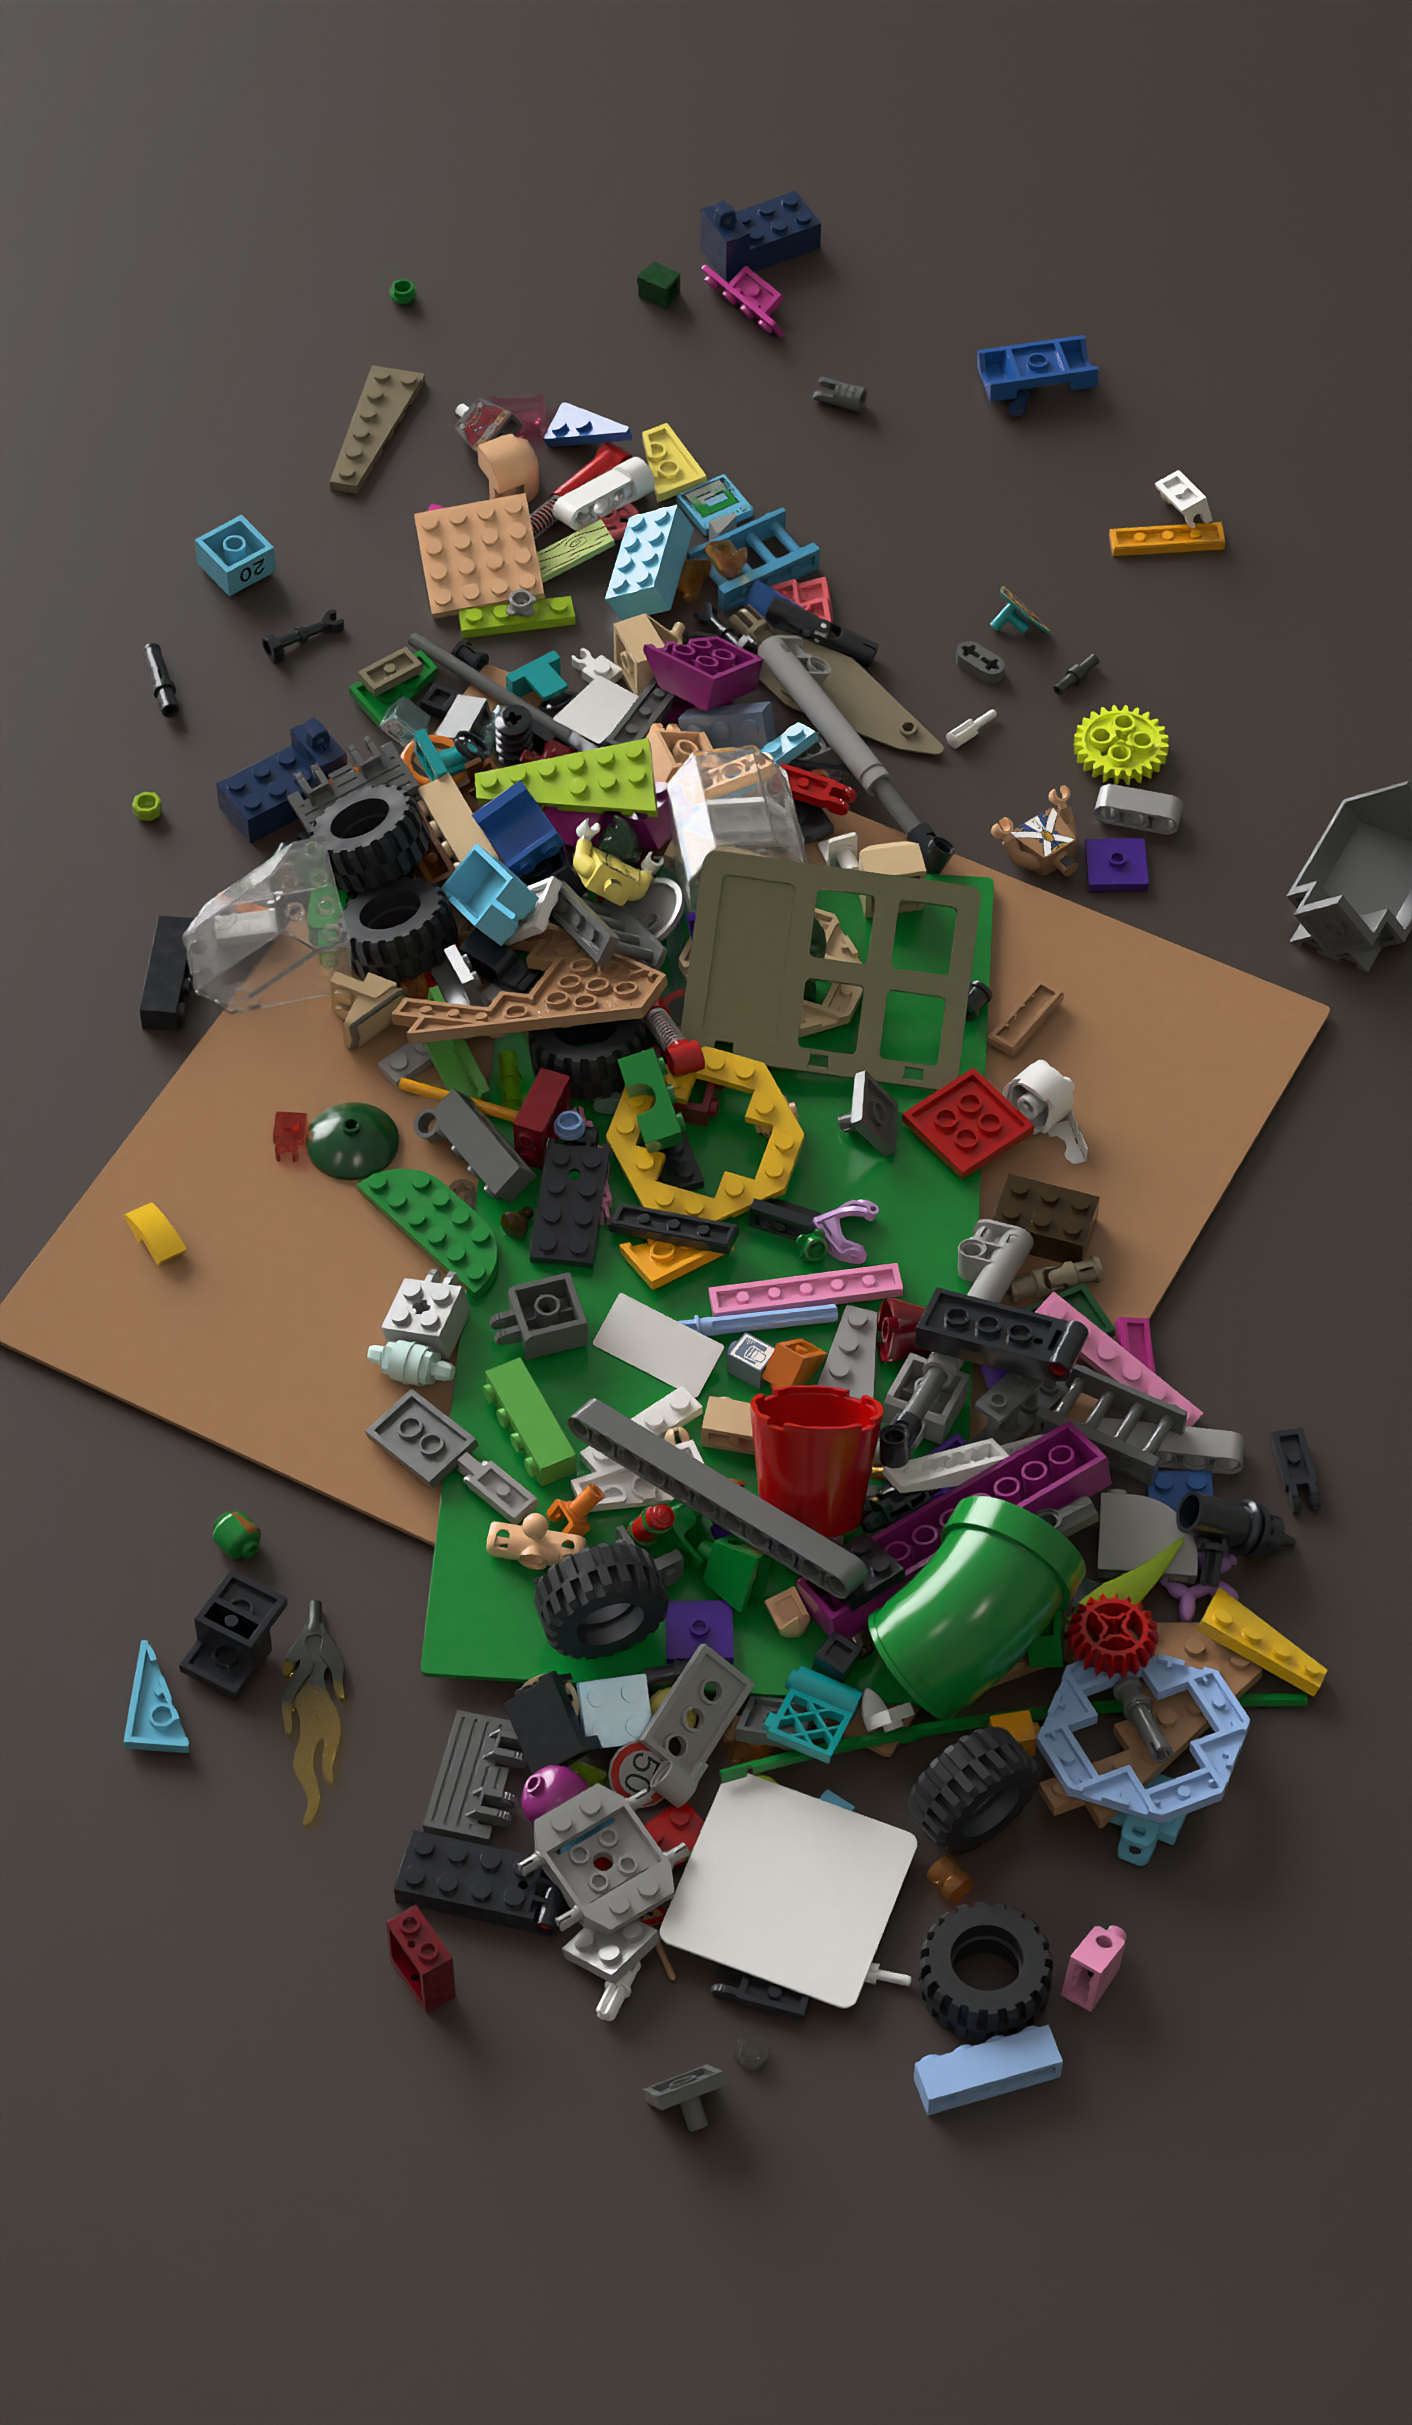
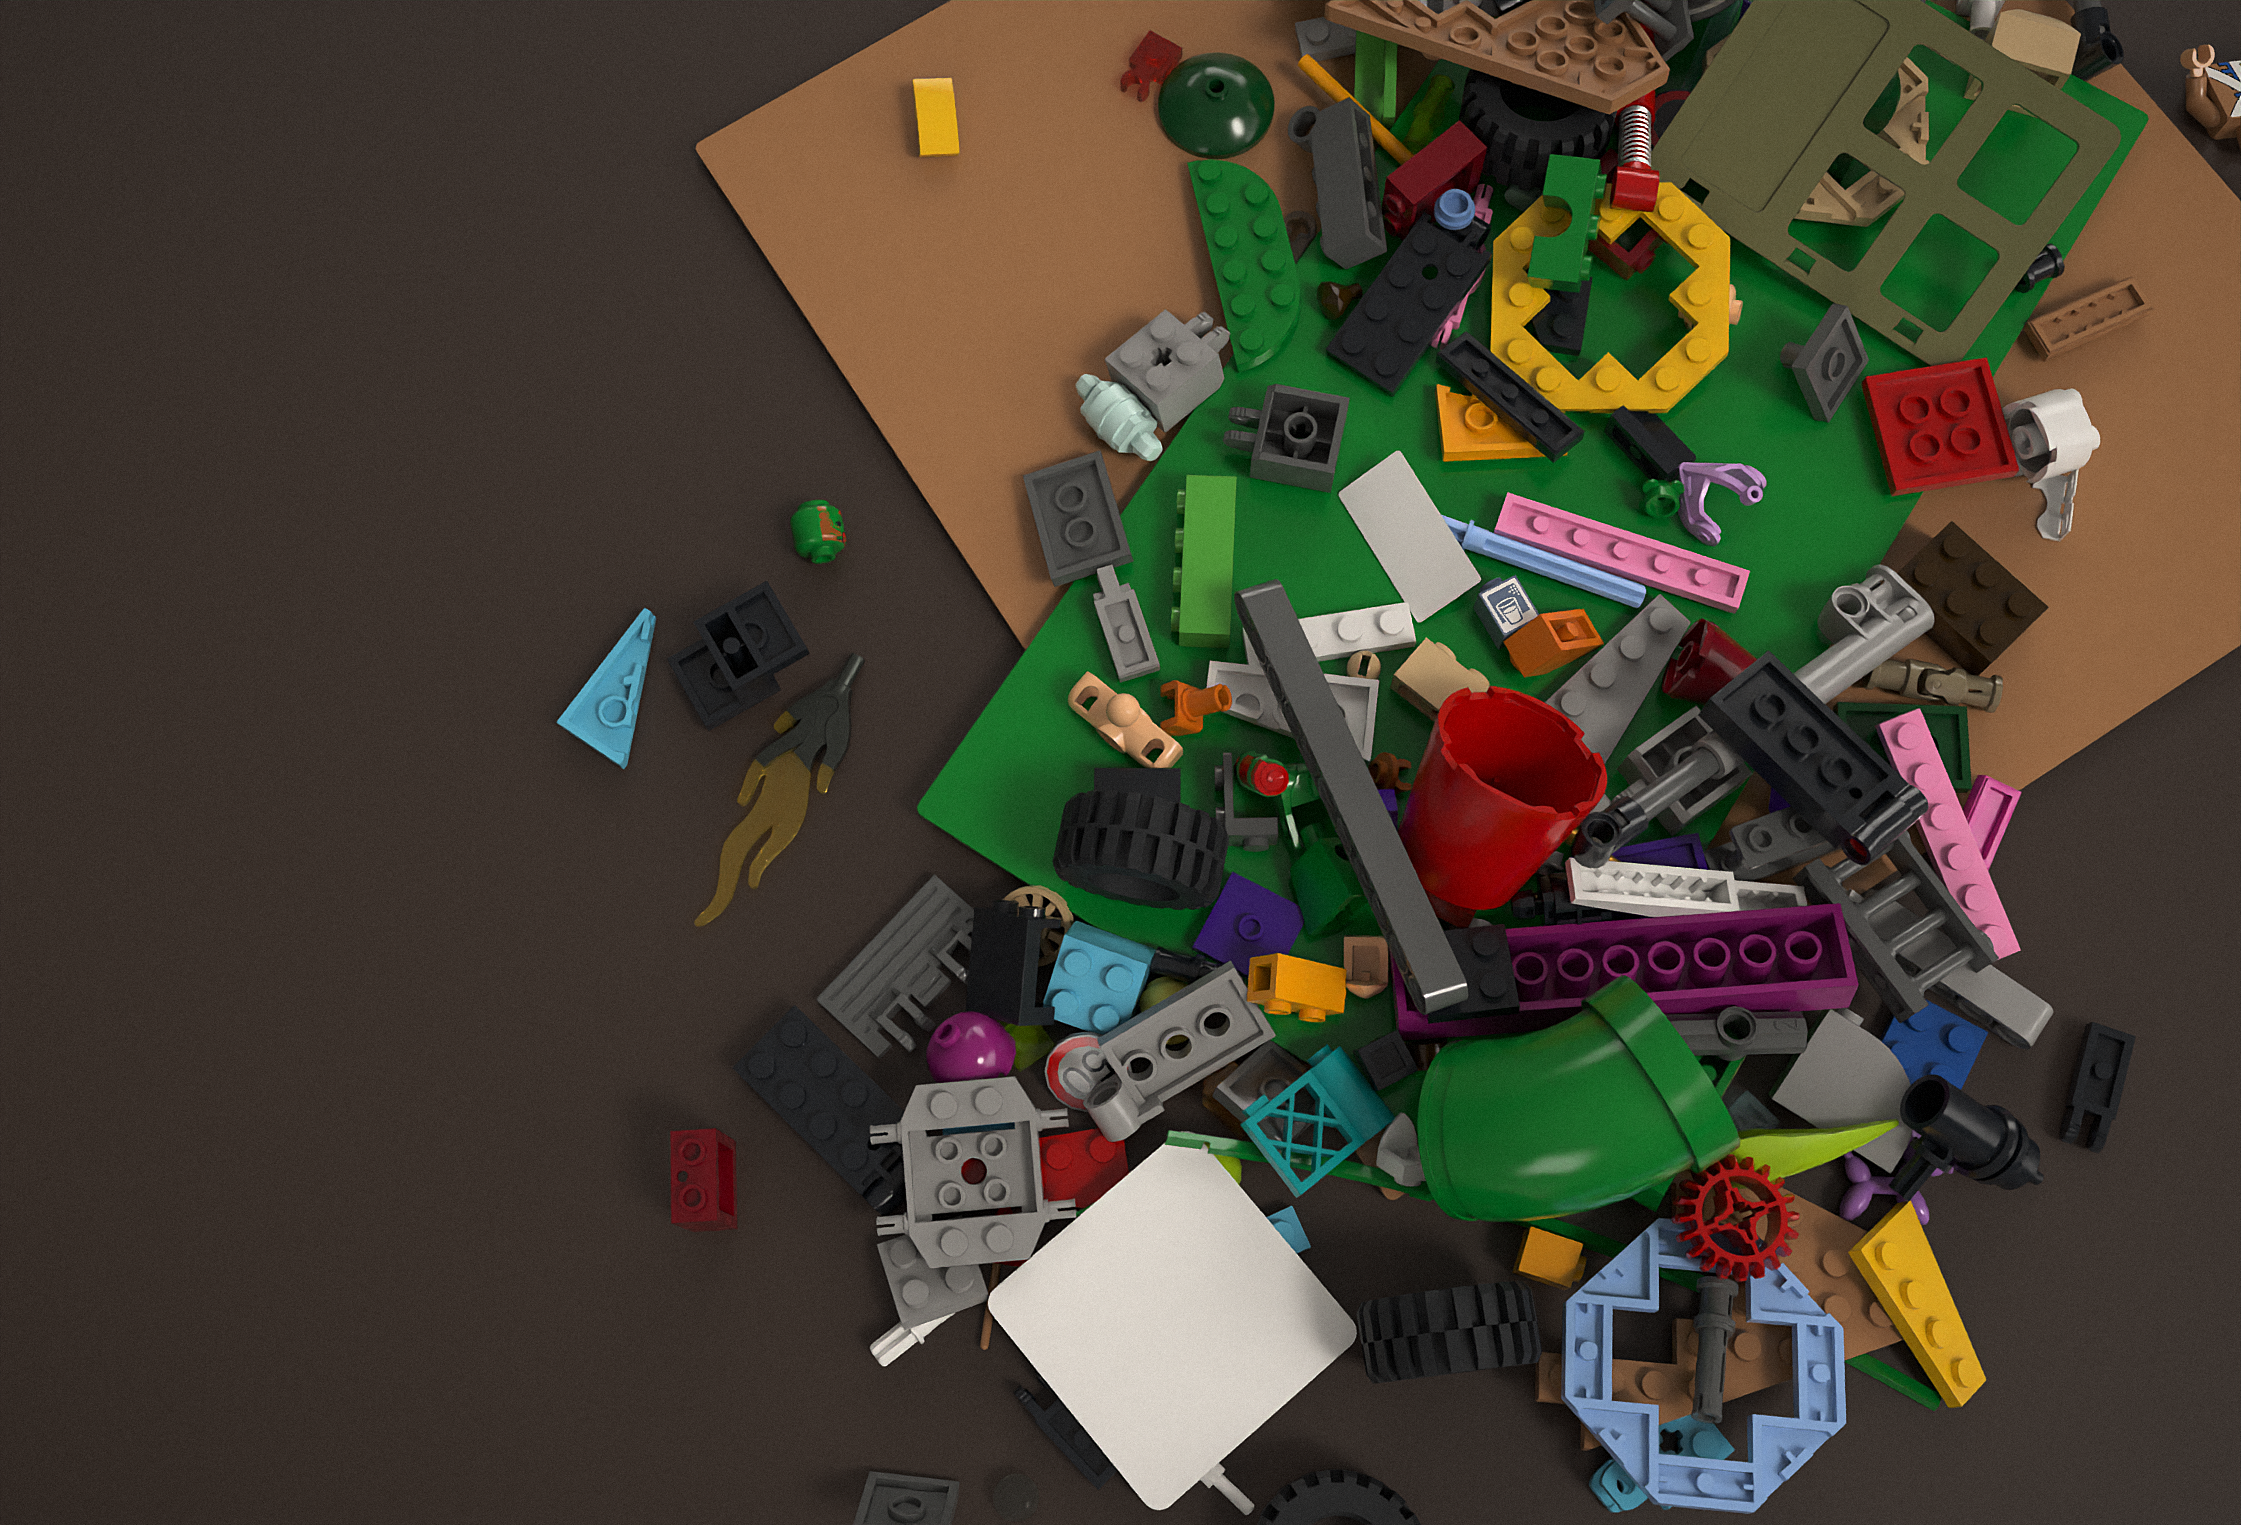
camera: 35 degrees right, 20 degrees up
(751, 1640) = (1296, 985): none -> light orange brick
(950, 1878) = (1364, 1396): clear orange wheel -> none

